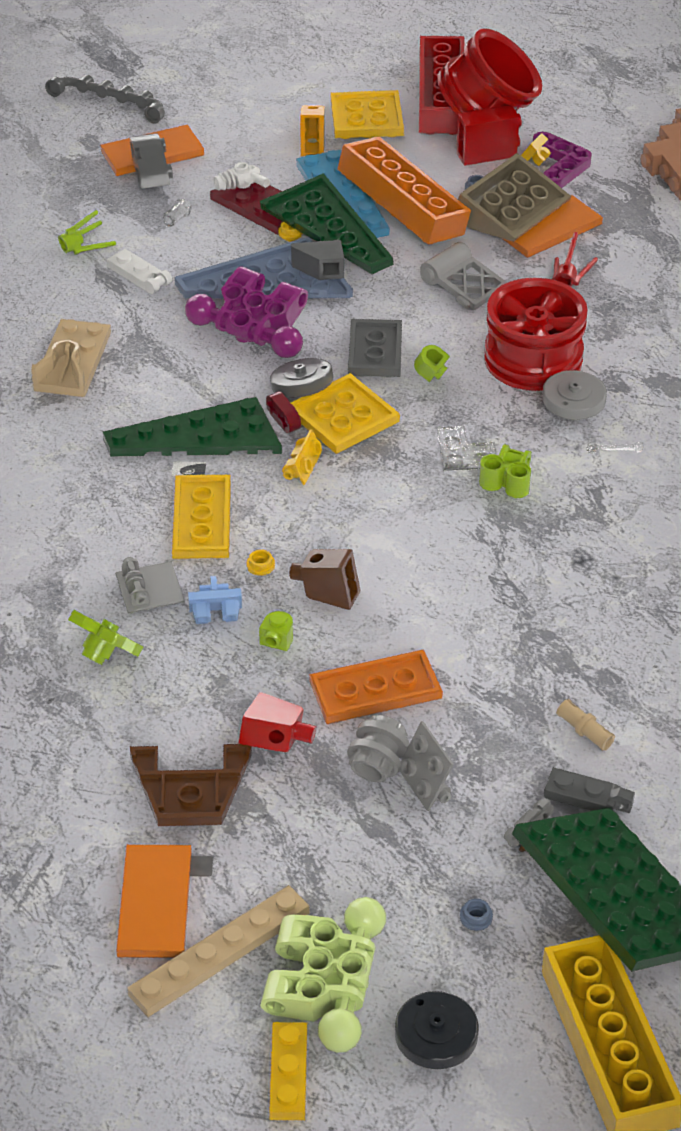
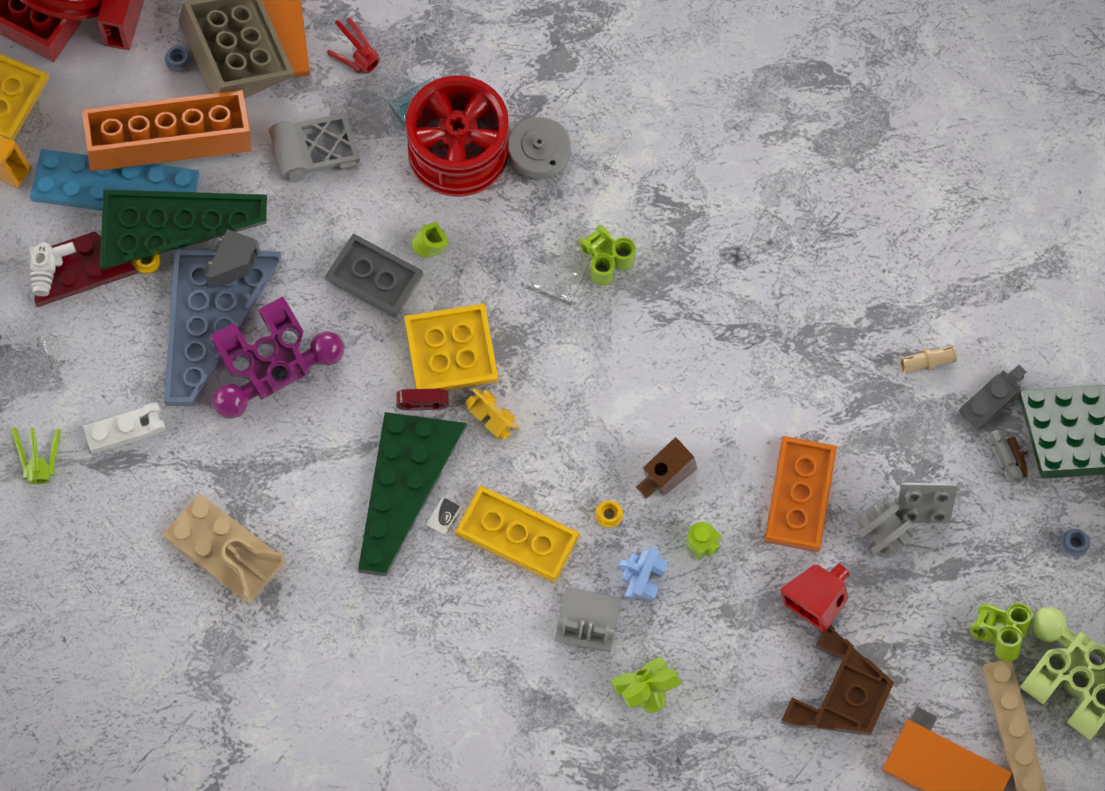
camera: 65 degrees left, 25 degrees up
(302, 377) = (385, 360): dark grey wheel -> none
(334, 882) = (1002, 628): none -> lime piece

